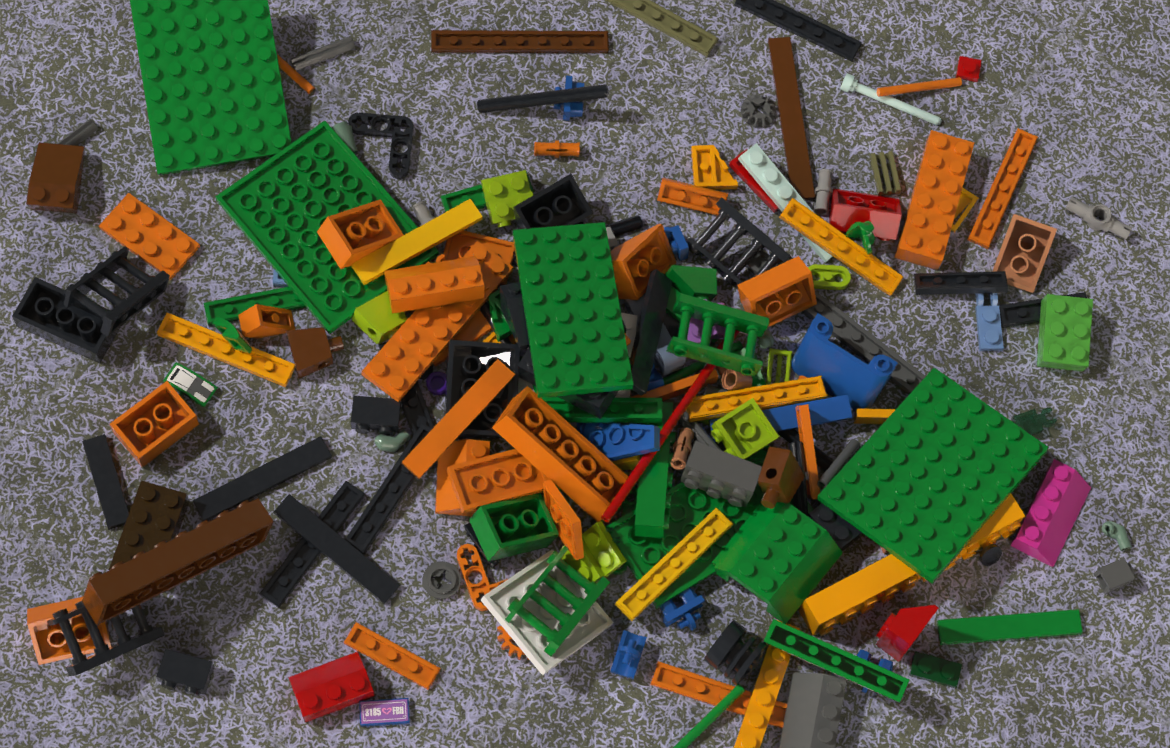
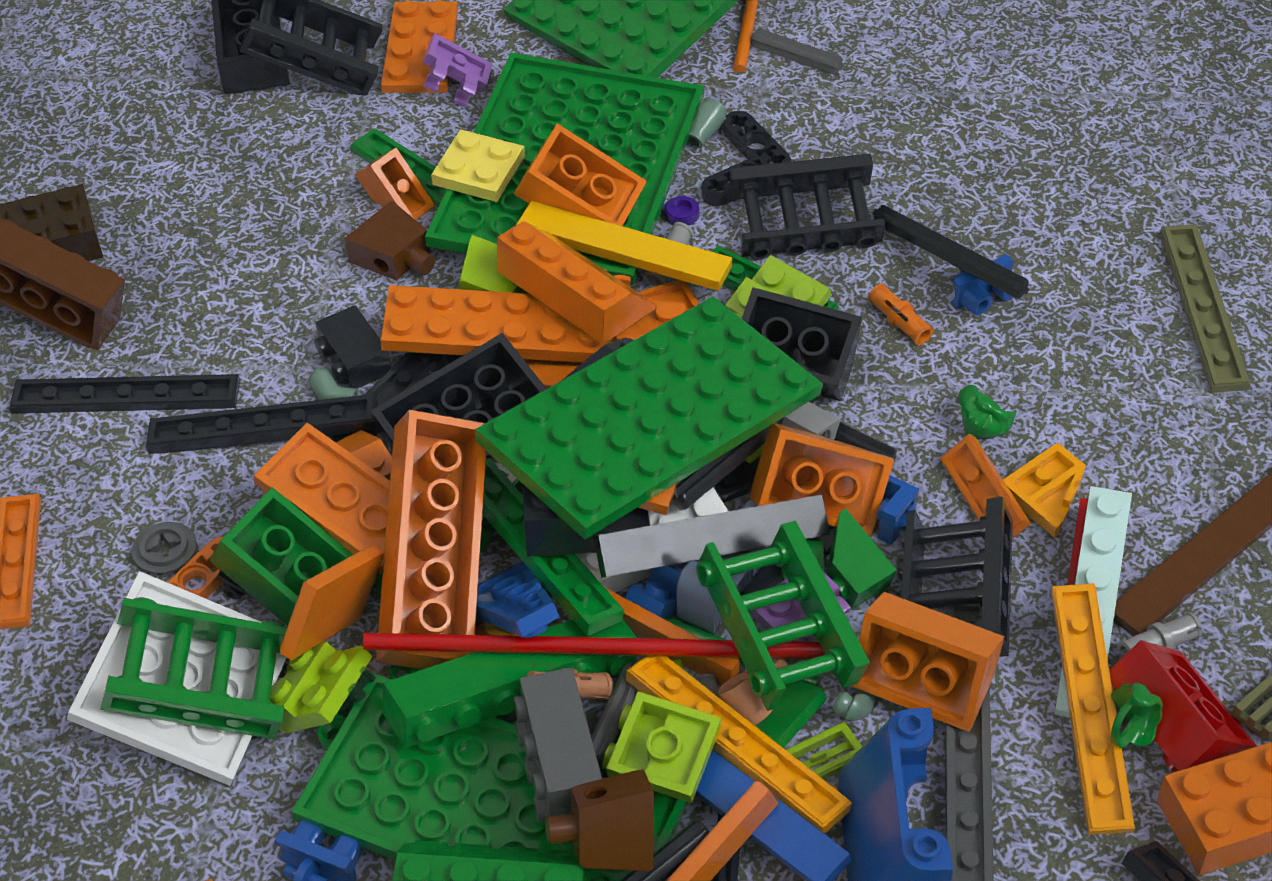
camera: 65 degrees right, 20 degrees down
(106, 481) = (87, 163): black tile -> none
(154, 424) = (172, 163): orange brick -> none
(190, 384) = (256, 172): slope -> none
(193, 228) = (458, 63): none -> medium lavender plate
(217, 347) = (327, 176): light orange plate -> none
(232, 335) = (344, 160): green slope -> none
(262, 479) = (194, 304): black tile -> none
(299, 271) = (478, 165): none -> light yellow plate
(336, 549) = (128, 416): black tile -> none
(400, 194) = (681, 209): none -> dark purple tile
(433, 136) = (799, 177): none -> black fence
(458, 419) = (386, 406): orange tile -> none
(518, 41) = (1014, 205): reddish brown tile -> none
(628, 654) = (189, 826): blue hips -> none
(649, 162) = (982, 415): none -> green piece
(674, 564) = (376, 791): yellow tile -> none
(759, 119) = (1186, 500): dark grey gear -> none
(827, 273) = (1033, 726): lime plate -> none

